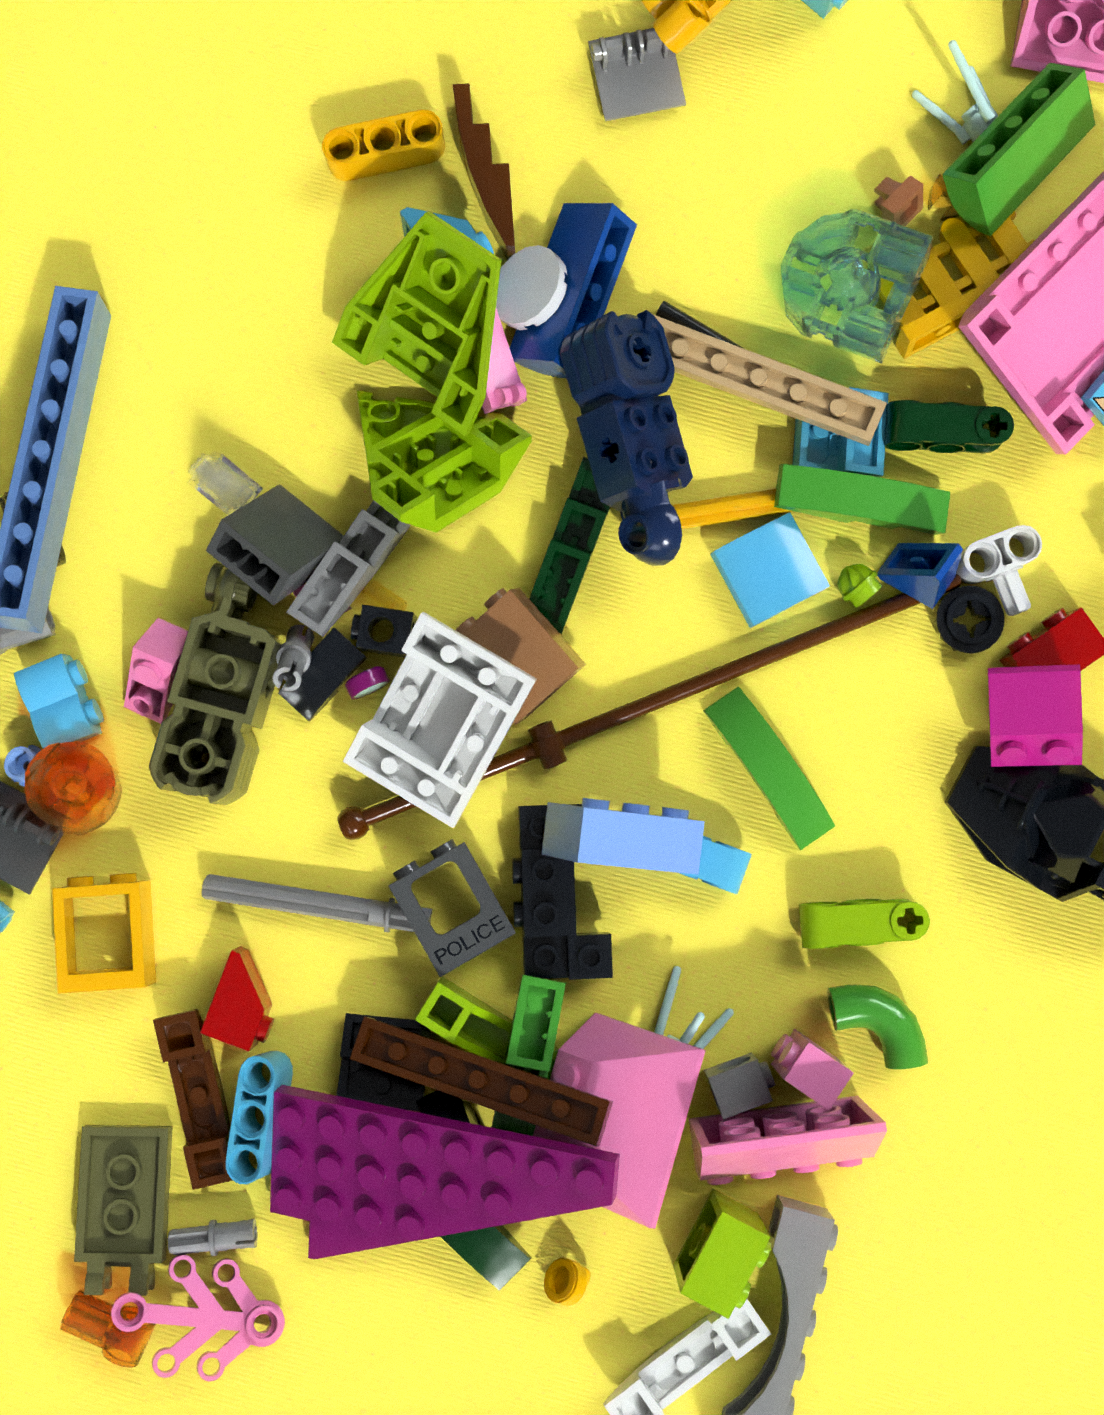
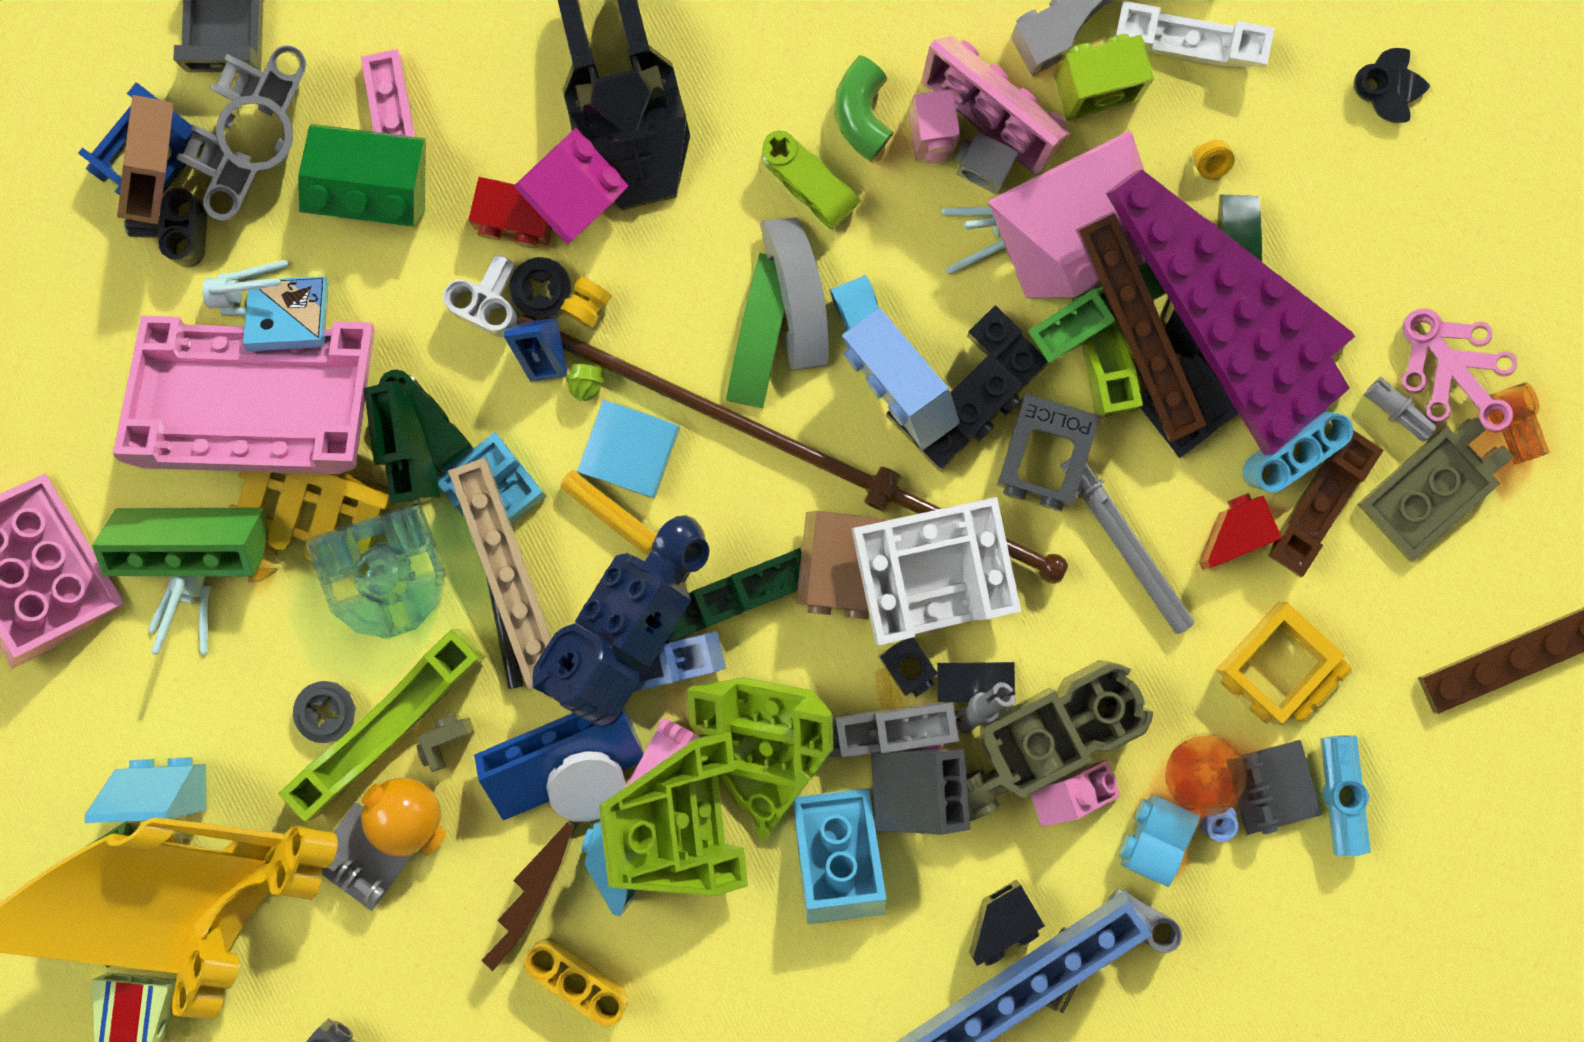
camera: 135 degrees left, 0 degrees up
(47, 948) = (1322, 692): none -> yellow axle
(112, 518) = (1002, 922): none -> black slope
(222, 482) = (912, 867): clear slope -> none
(288, 436) = (839, 856): none -> medium azure slope
(367, 682) = (953, 646): magenta tile -> none
(557, 457) = (684, 660): none -> medium blue slope
(639, 123) = (402, 818): none -> light orange brick
(675, 197) = (446, 730): none -> olive bracket
(726, 207) = (383, 726): none -> lime arch
(772, 827) = (801, 292): none -> light grey slope
(787, 126) = (308, 719): none -> dark grey gear
(861, 499) = (525, 431): bright green slope -> none
(900, 201) = (295, 591): nougat tile -> none
(922, 634) = (582, 310): none -> yellow wheel
(943, 384) = (400, 444): none -> dark green slope

